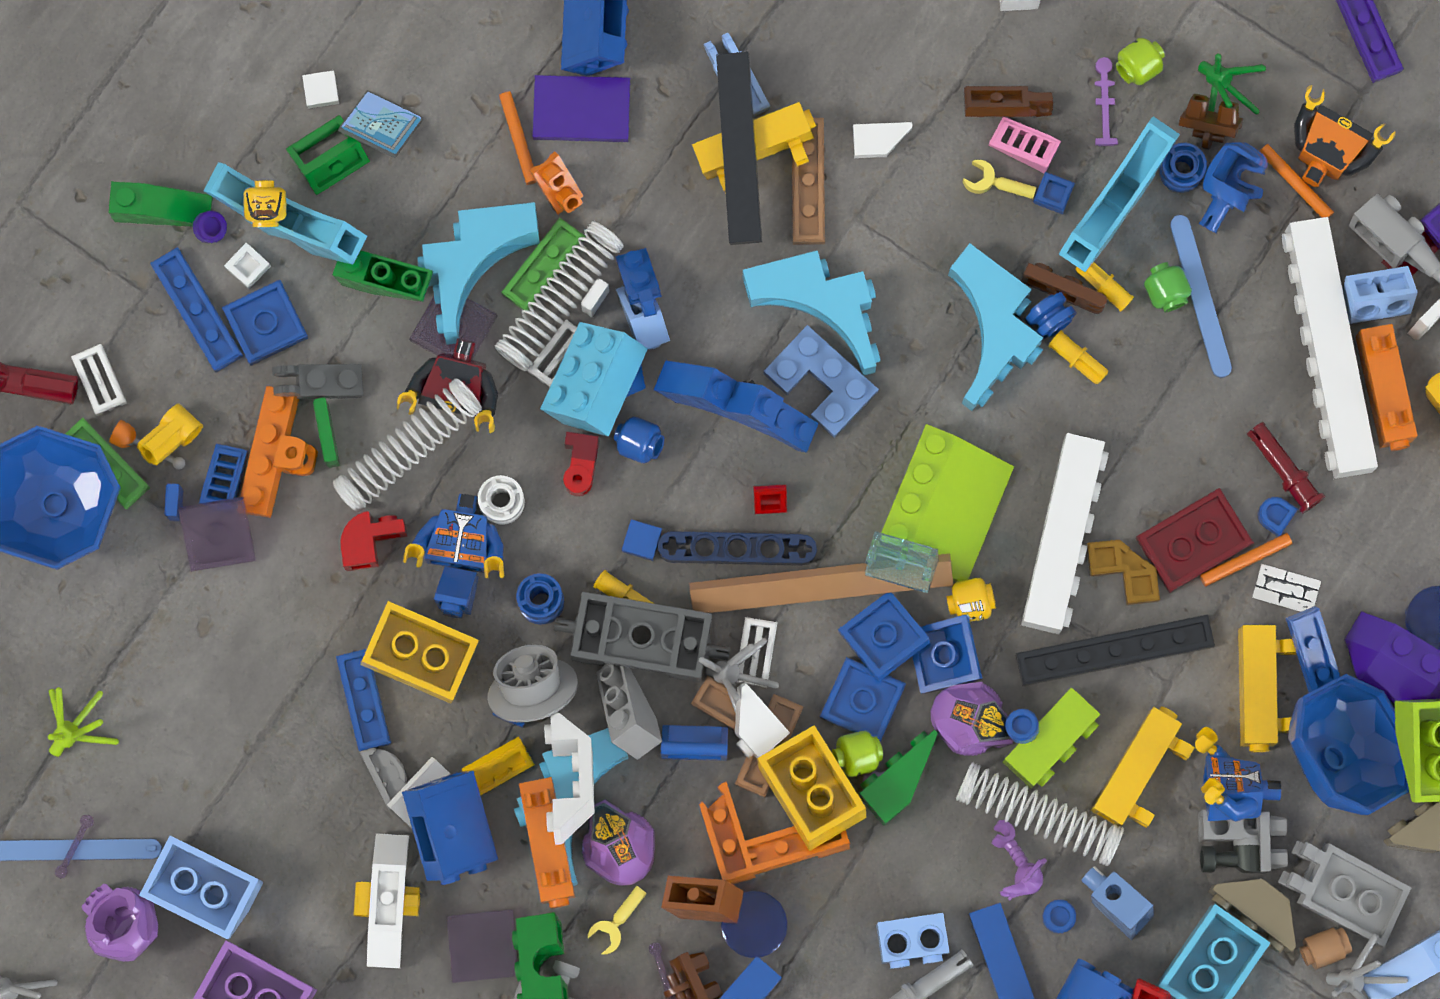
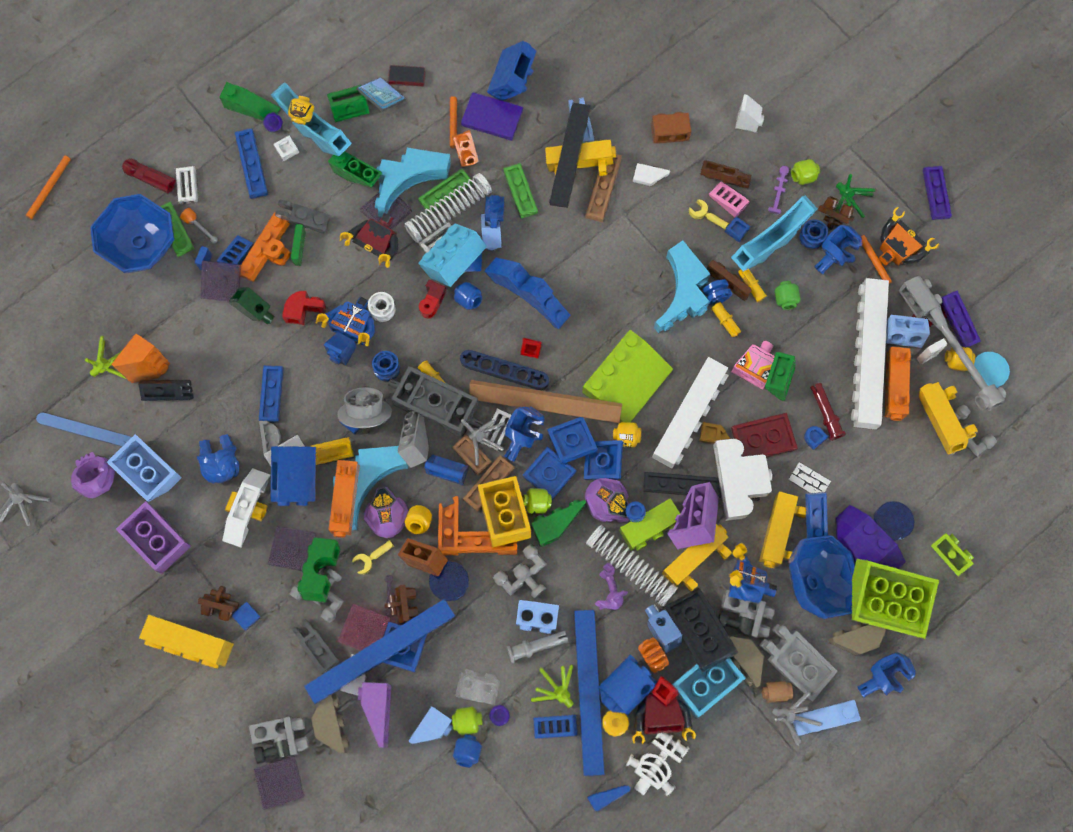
camera: 15 degrees right, 5 degrees down
(86, 822) = (96, 416): clear purple hinge -> none
(138, 710) = (140, 361): none -> orange slope
(175, 429) = (216, 220): yellow piece -> none
(189, 744) = (165, 390): none -> black hinge
(265, 322) = (285, 180): blue tile -> none
(283, 561) = (246, 300): none -> dark green torso
(320, 89) = (355, 69): white tile -> none
(323, 847) = (221, 465): none -> blue hair
(350, 493) = (374, 241): white piece -> none
(412, 75) = (406, 75): none -> black tile
(419, 652) = (308, 374): yellow brick -> none
(571, 812) = (359, 483): white slope -> none
(595, 297) = (467, 214): white tile -> none
(641, 540) = (452, 350): blue tile -> none
(670, 228) = (520, 190): none -> bright green tile
(675, 840) = (418, 519): none -> yellow head
(756, 724) = (484, 467): white slope -> none
(795, 646) = (519, 430): none -> blue piece
(815, 356) = (579, 279): medium blue plate -> none
(838, 302) = (586, 240): medium azure arch -> none
(870, 878) = (523, 574): none -> light grey piece
(892, 44) = (671, 127): none -> dark orange brick
(901, 562) = (593, 399): clear light blue hinge -> none
(1059, 916) = (626, 628): blue tile -> none
(1115, 948) = (653, 655): none -> orange gear
(1125, 707) = (698, 518): none -> medium lavender wedge
(1149, 421) = (755, 364): none -> bright pink torso
(1174, 621) = (740, 478): none -> white brick
(1179, 886) = (701, 629): none -> black plate
(1193, 429) = (781, 375): none -> green tile
(1201, 296) = (804, 307): medium blue piece -> none
(1246, 559) = (793, 456): orange bar -> none

